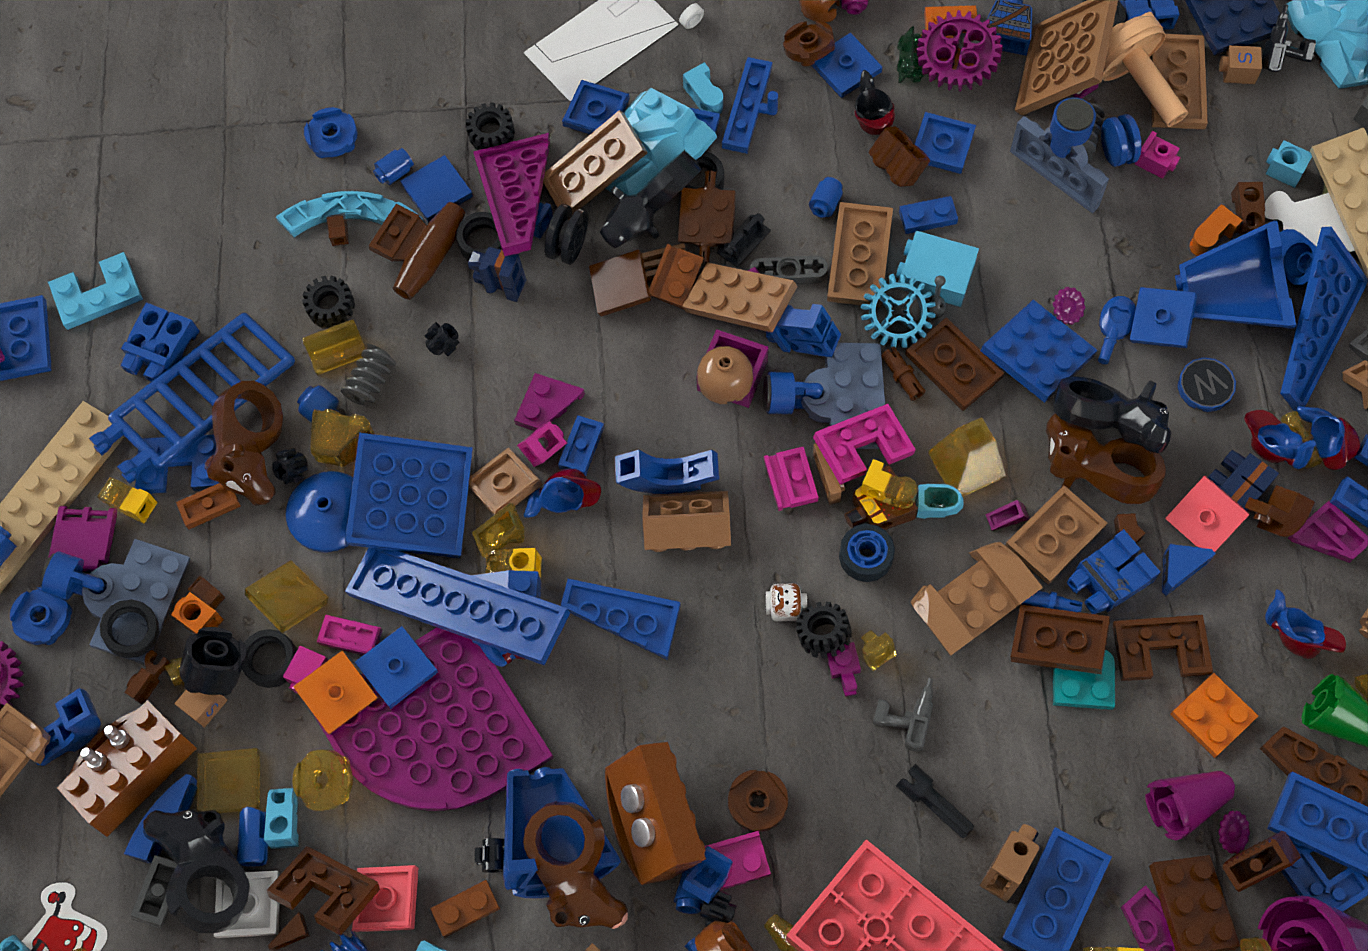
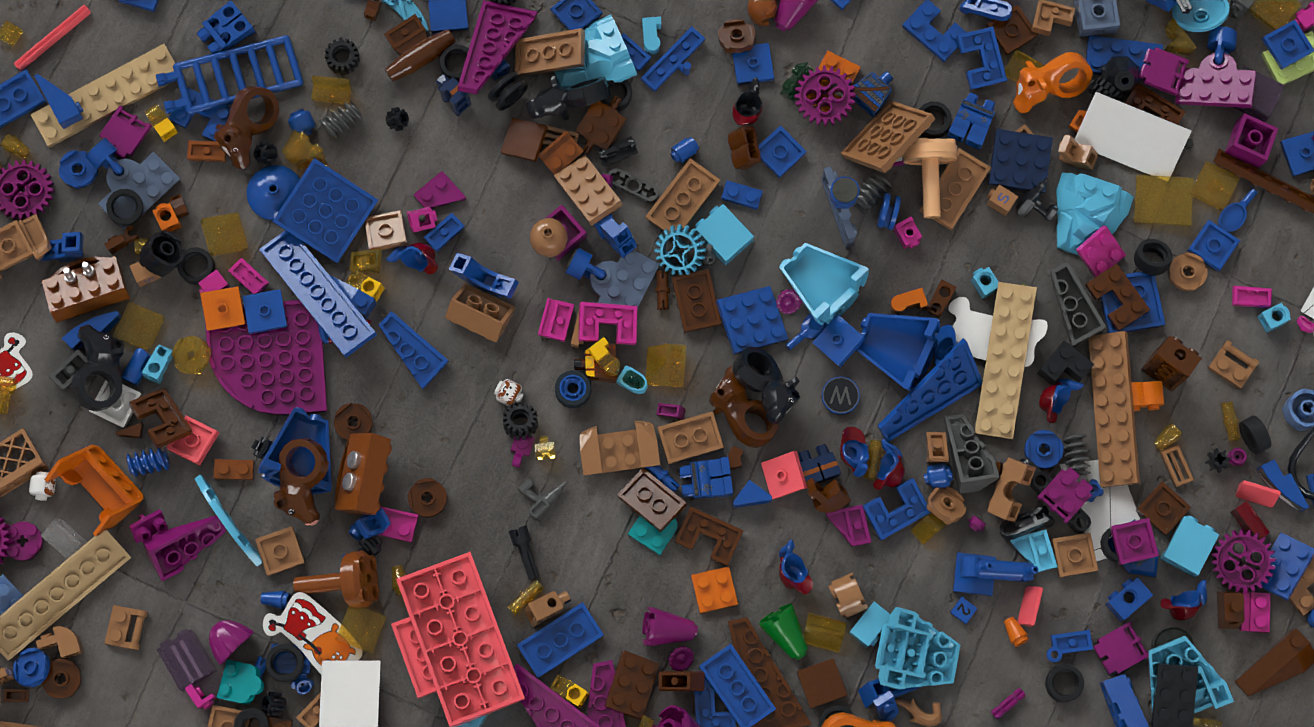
camera: 20 degrees right, 10 degrees up
(591, 737) = (354, 411): none -> reddish brown plate
(972, 864) = (525, 597): none -> clear yellow pin
(1097, 255) = (824, 281): none -> medium azure cone

